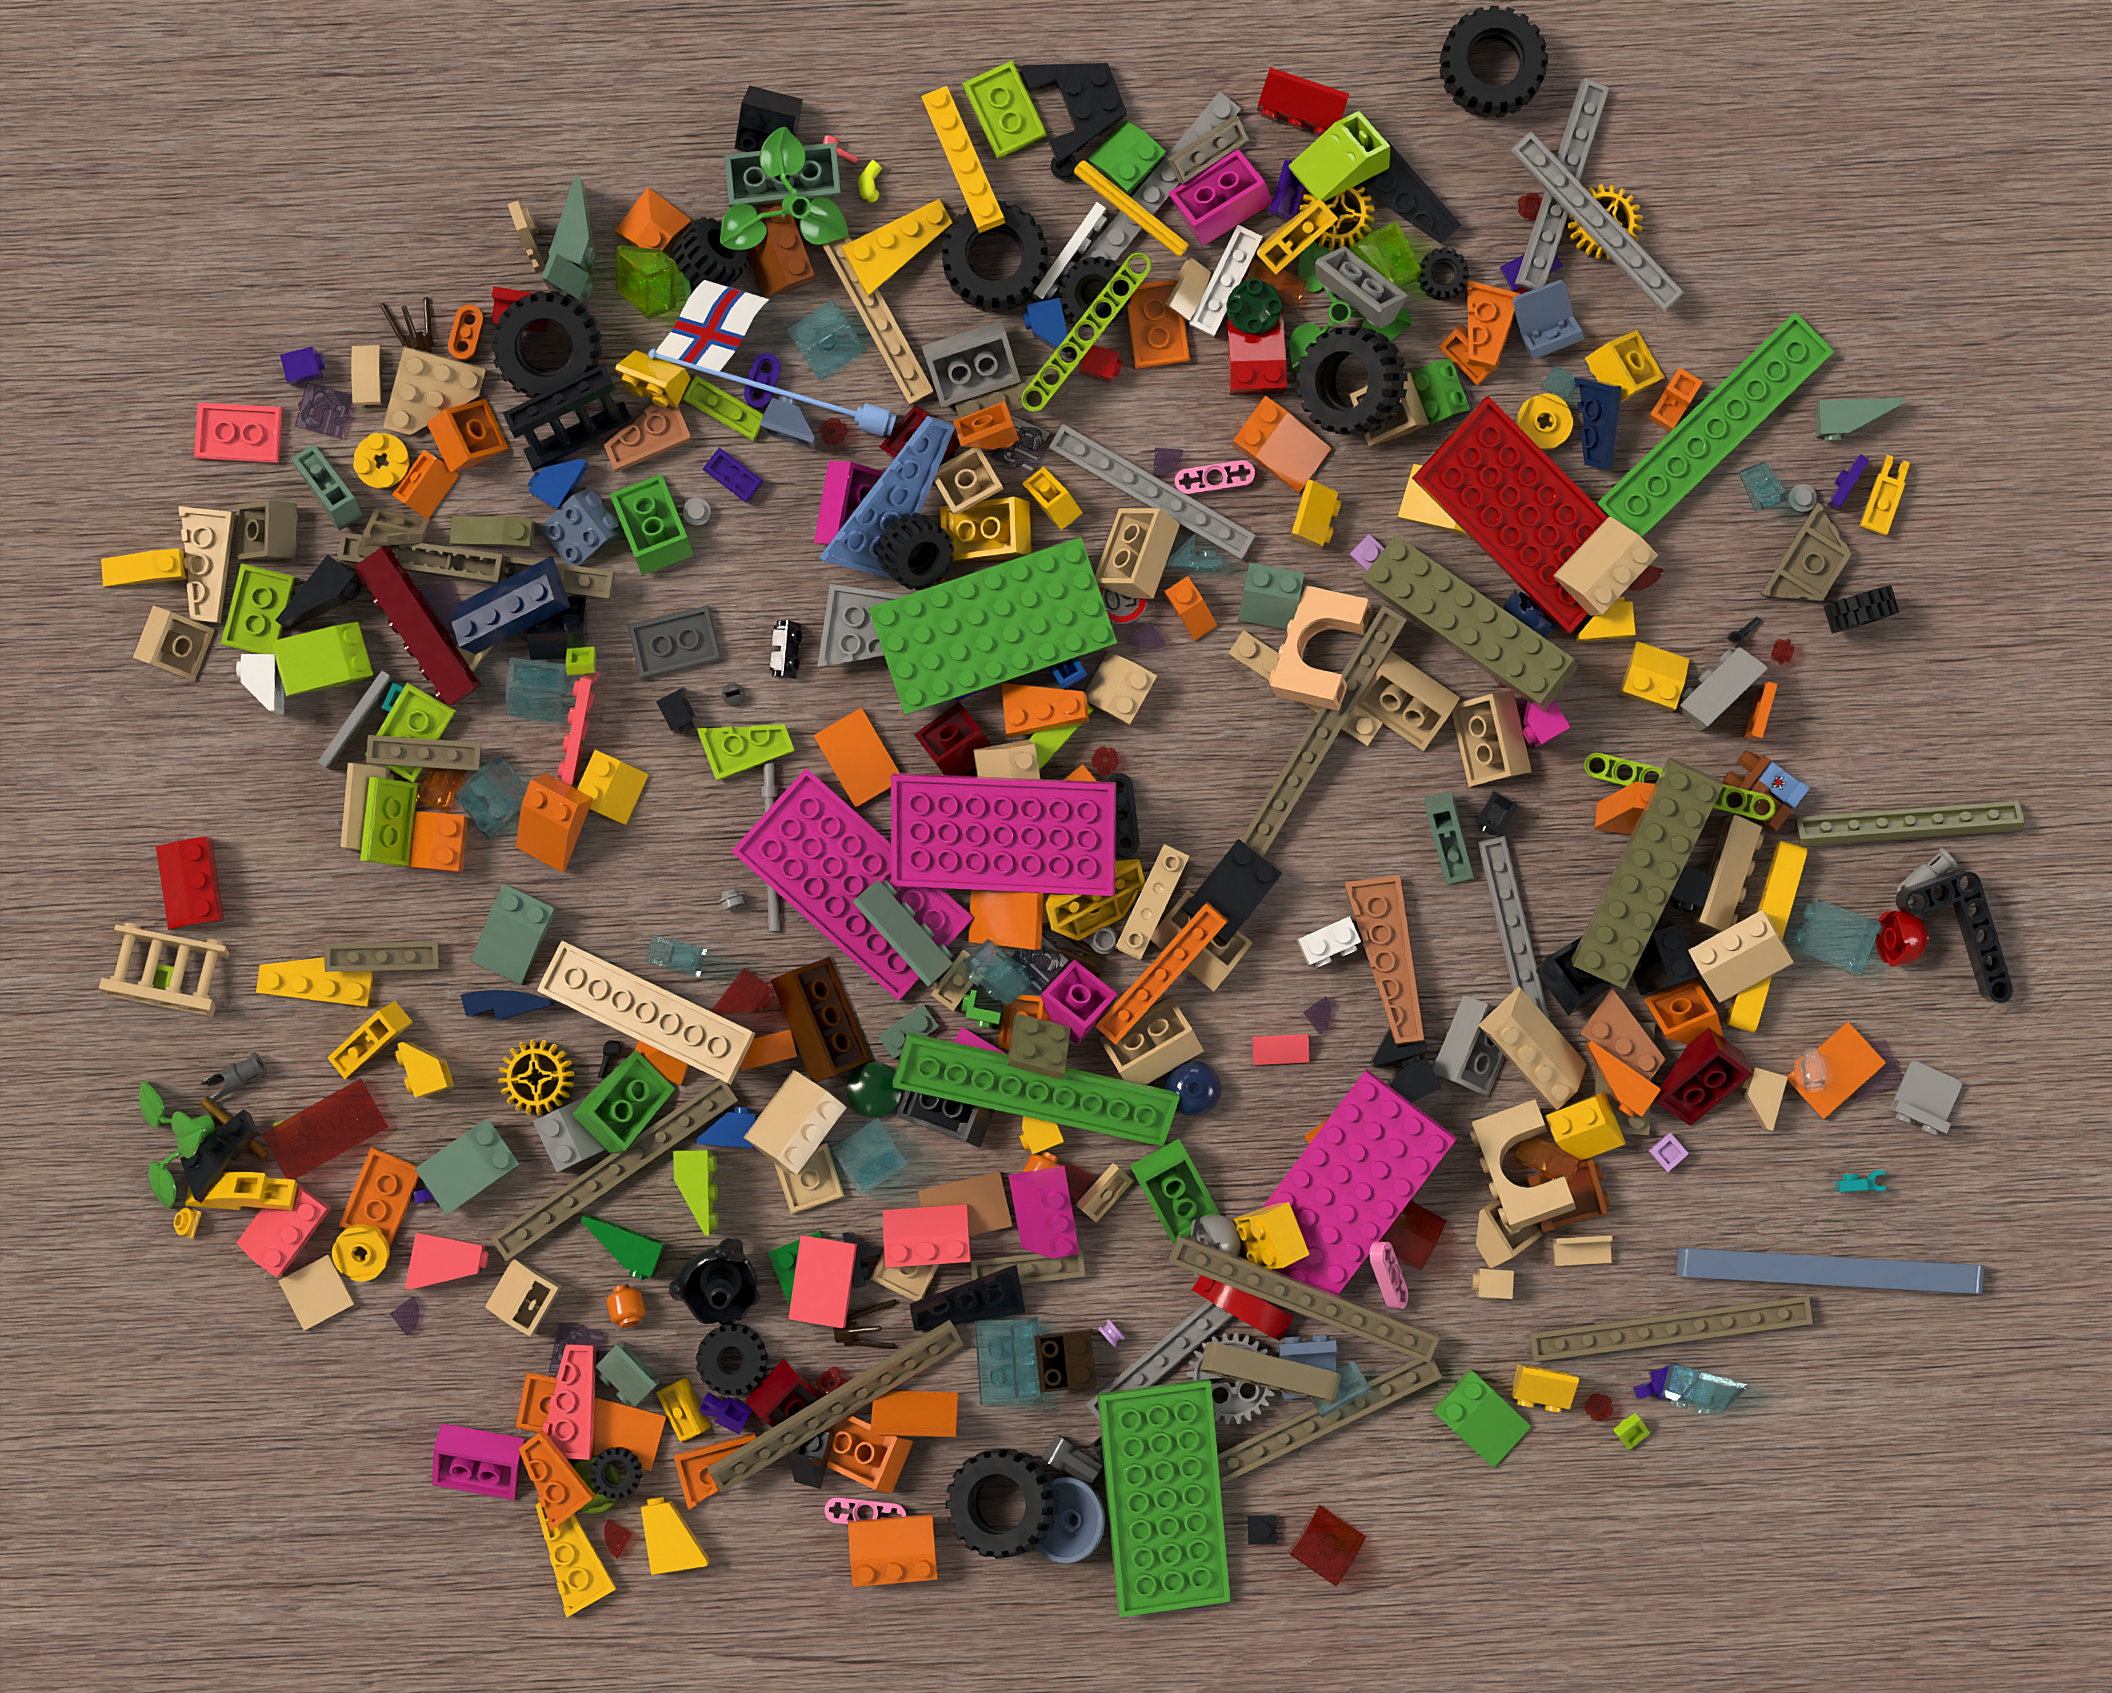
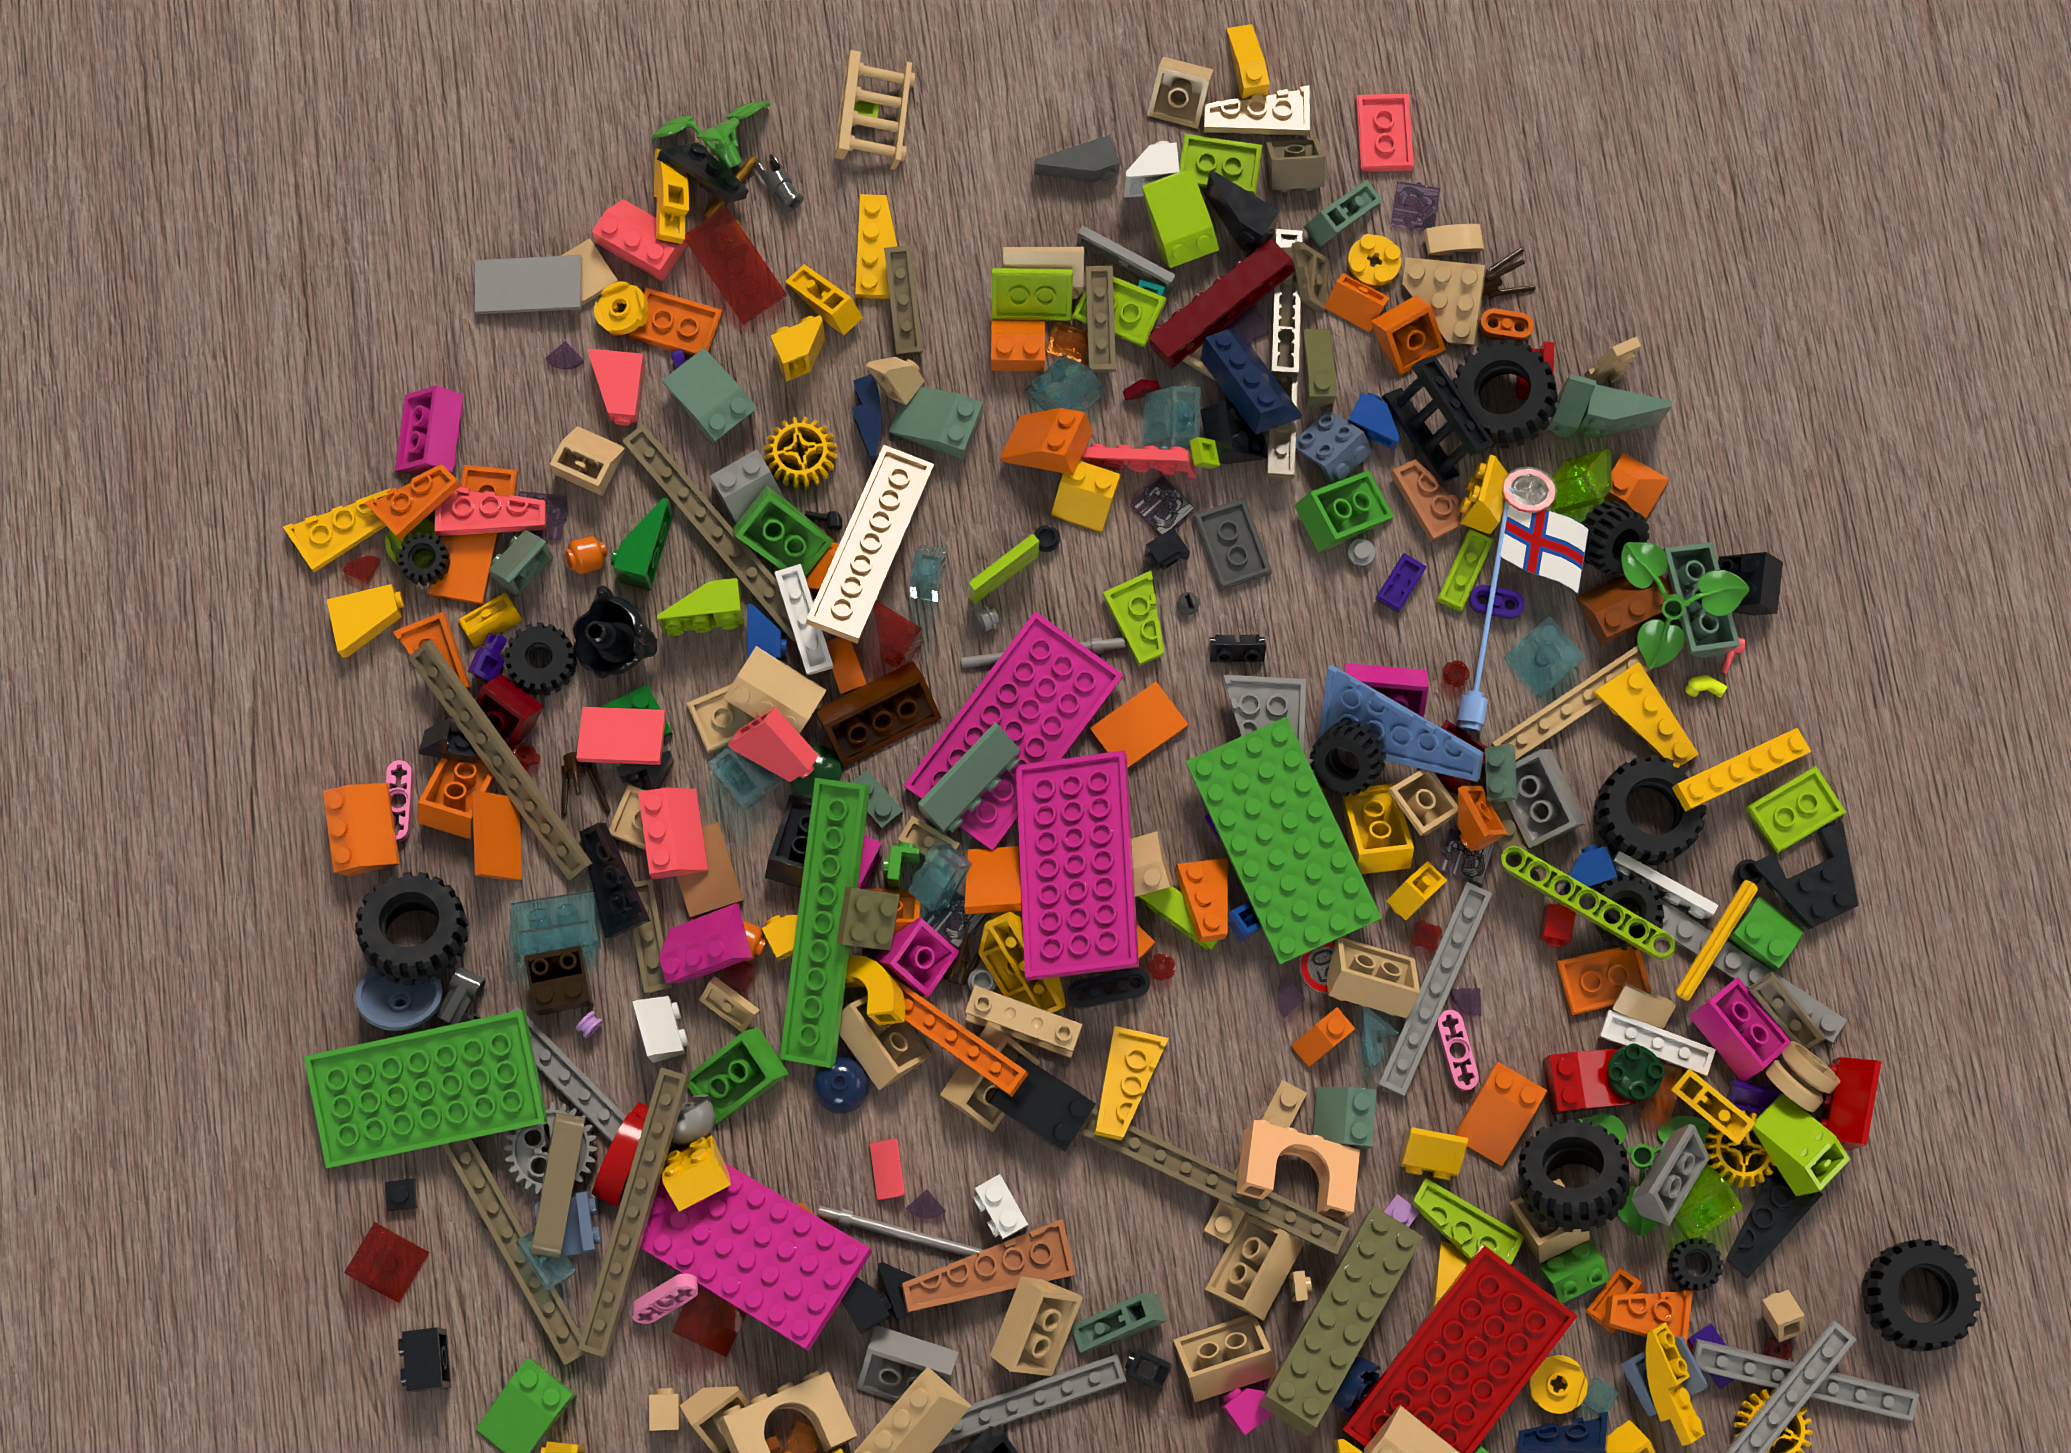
camera: 80 degrees right, 10 degrees down
(187, 1222) = (639, 154): yellow plate -> none
(190, 882) = (958, 128): red slope -> none
(243, 750) = (1086, 162): none -> dark grey slope
(302, 365) = (1455, 181): dark purple brick -> none
(324, 1348) = (528, 284): none -> light grey tile
(466, 970) = (897, 378): none -> tan slope
(500, 718) = (1140, 388): none -> dark red tile
(627, 709) = (1162, 506): none -> piece
(651, 832) = (1048, 538): none -> black plate
(653, 333) = (1529, 489): none -> clear piece
(683, 878) = (1003, 569): none -> lime tile
(710, 1089) = (798, 605): none -> white plate
(787, 423) = (1459, 627): sand blue slope -> none
(850, 1126) = (775, 746): none -> coral slope
(943, 399) = (1501, 773): none -> sand green plate
(952, 740) = (1164, 811): dark red slope -> none
(1096, 486) = (1433, 932): none -> clear red plate
(1111, 1036) = (885, 995): none -> yellow arch
(1119, 688) = (1234, 974): tan slope -> none
(1123, 1262) = (660, 1028): none -> white slope
(1211, 805) = (1127, 1073): none -> yellow wing
(1274, 144) = (1802, 1076): none -> tan wheel
(1324, 1093) = (847, 1218): none -> light grey bar
(1386, 490) = (1464, 1223): none -> lime wing
(1426, 1511) = (425, 1359): none -> black brick
(1432, 659) = (1299, 1286): none -> tan plate
(1447, 918) = (1035, 1327): none -> tan slope
(1500, 196) = (1783, 1315): none -> tan brick
(1550, 318) = (1665, 1376): none -> yellow slope

